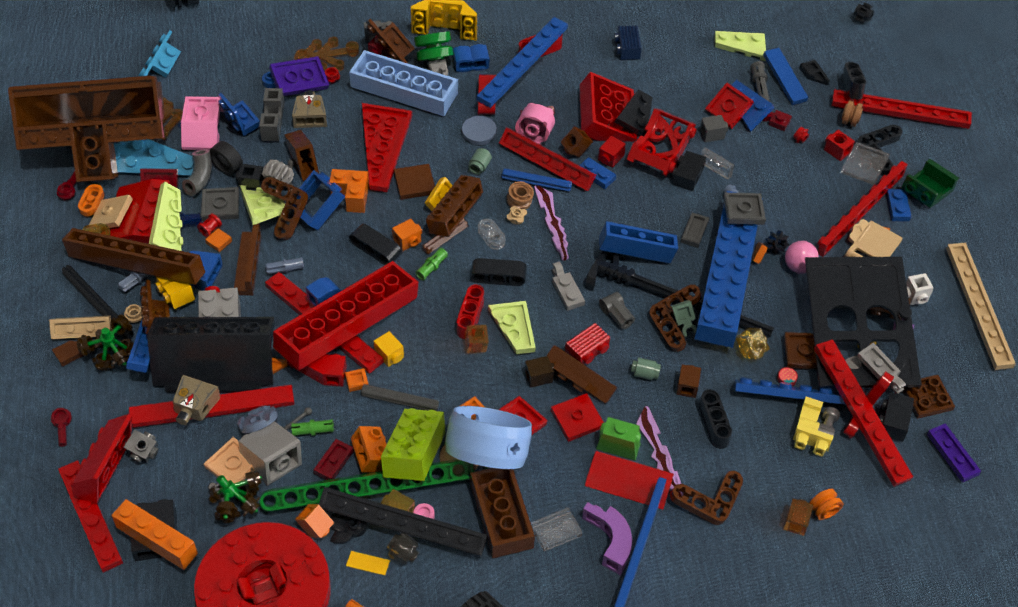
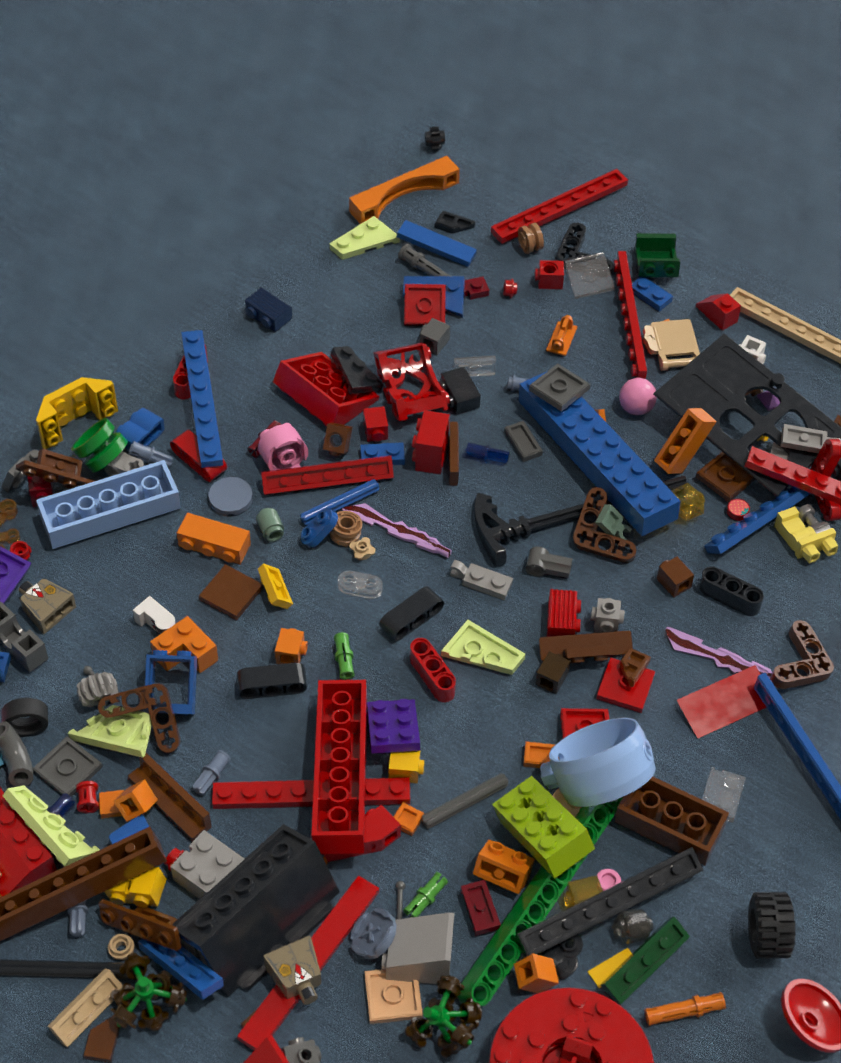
camera: 45 degrees left, 0 degrees up
(225, 244) = (135, 800): none -> orange brick
(250, 176) = (69, 715): black brick -> none
(302, 153) = (93, 649): reddish brown slope -> none
(321, 290) = (294, 765): blue brick -> none
(355, 158) = (154, 615): none -> white leg
(384, 137) = (151, 571): red wing -> none
(386, 574) = (645, 960): none -> dark green plate
(407, 322) = (393, 726): none -> dark purple plate
(438, 145) = (213, 538): none -> orange brick
(439, 240) = (322, 620): reddish brown axle -> none
(454, 205) = (303, 584): reddish brown brick -> none
(459, 73) = (149, 454): none -> sand blue axle
(476, 338) = (471, 688): clear orange brick -> none
(507, 180) = (319, 527): none -> blue plate
(593, 408) = (633, 665): none -> reddish brown tile
(613, 367) = (607, 615): none -> light grey brick
(618, 531) = (778, 754): medium lavender arch -> none
(619, 438) = (684, 672): bright green torso -> none
(629, 184) = (431, 442): none -> red brick
(638, 203) = (453, 454): none -> reddish brown tile
(638, 242) = (503, 488): blue brick -> none
(645, 369) = (632, 595): sand green brick -> none
(661, 218) = (487, 453): none -> clear blue axle
(777, 241) = (603, 398): black gear -> none
(792, 302) = (685, 440): none -> orange brick
(800, 187) = (562, 336): none -> orange hinge
(835, 35) = (434, 175): none -> orange arch
(853, 80) = (500, 206): black beam -> none
(934, 250) = (720, 309): none -> red slope

